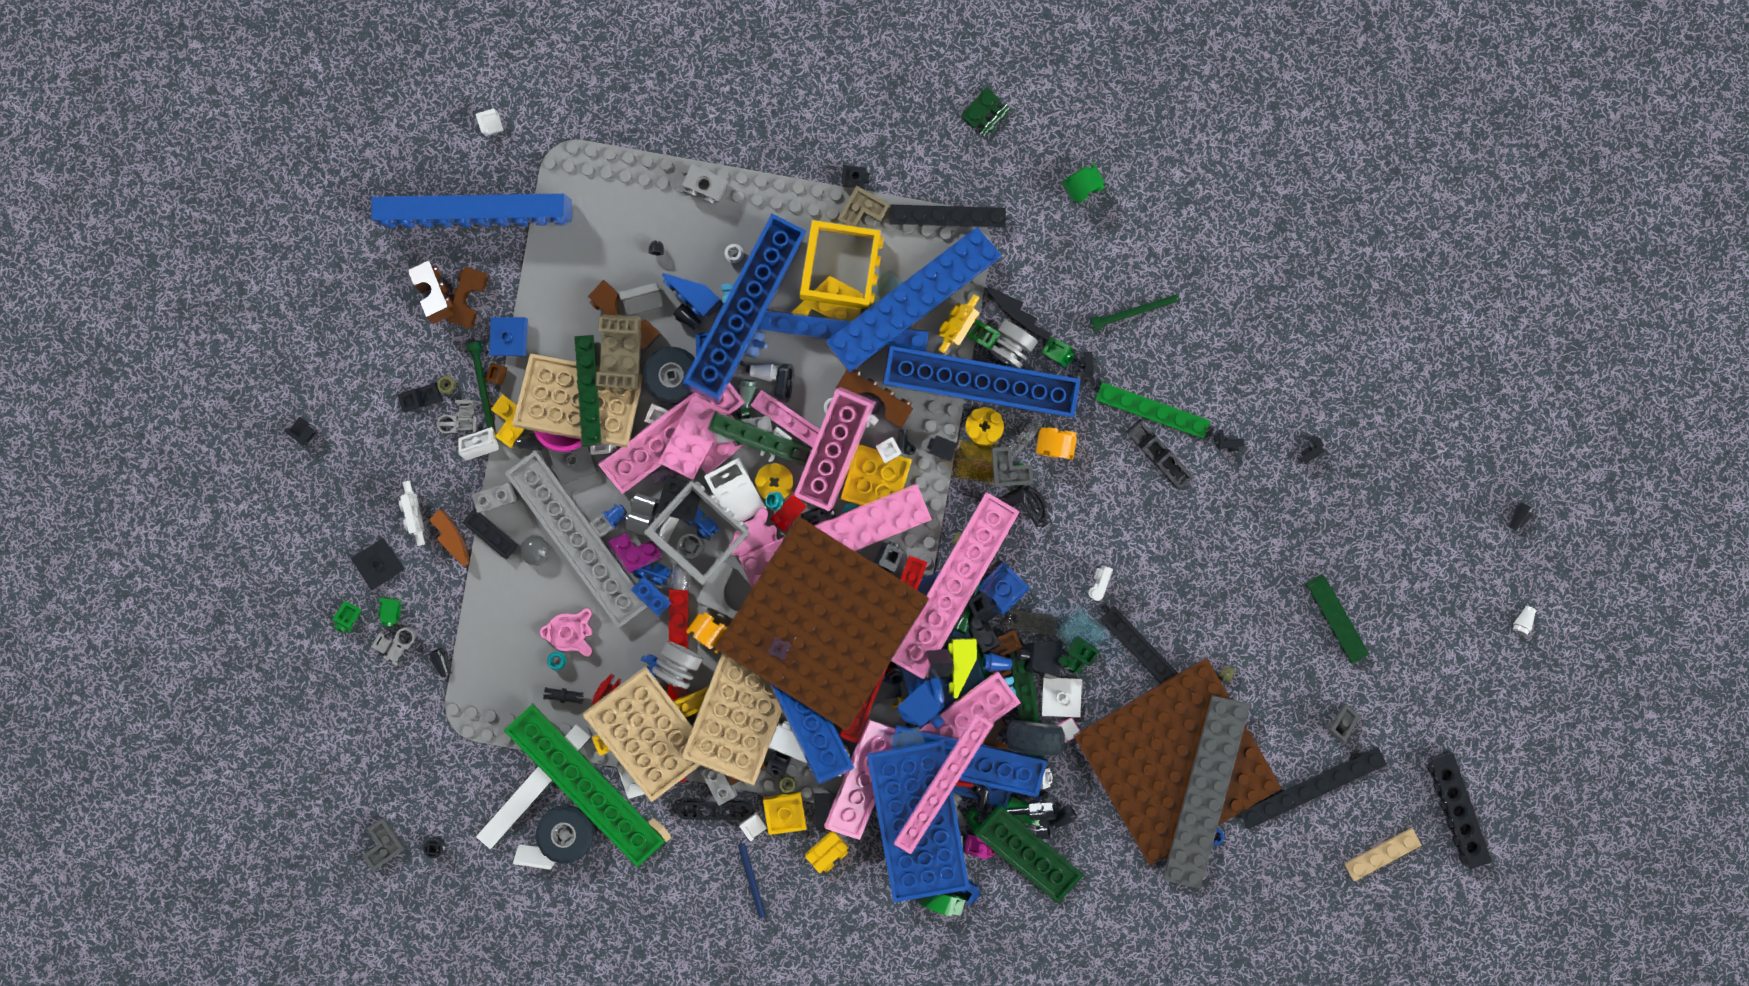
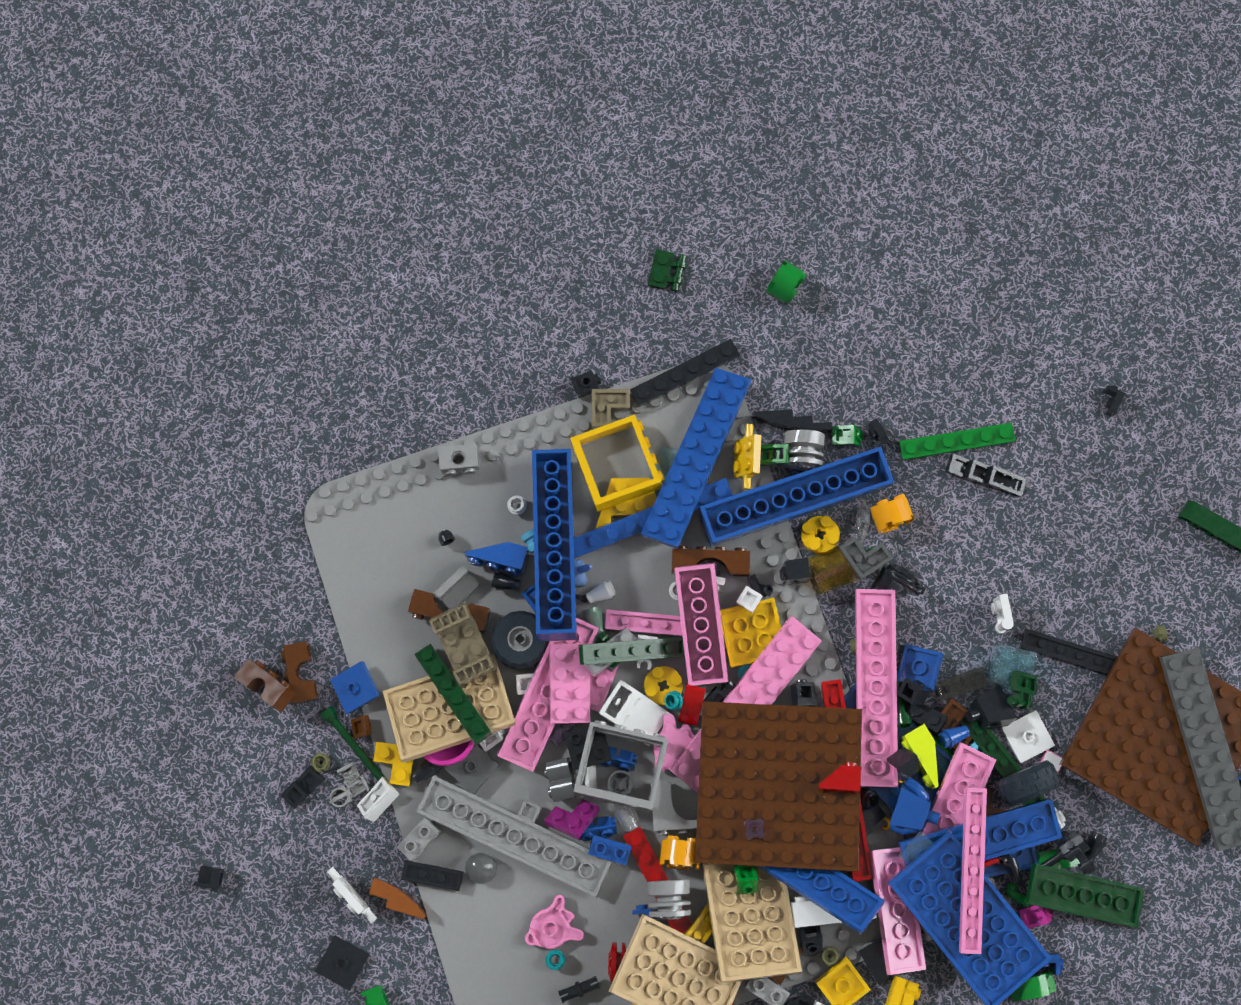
camera: 25 degrees left, 10 degrees down
(472, 210) = (264, 592): blue brick -> none
(489, 122) = (240, 508): white panel -> none
(615, 514) = (537, 793): blue brick -> none
(750, 685) = (746, 879): none -> green bracket
(785, 382) = (626, 598): black plate -> none
(877, 649) = (843, 779): none -> red slope
(1099, 322) = (867, 391): dark green piece -> none
(1231, 445) = (1043, 432): black bracket -> none

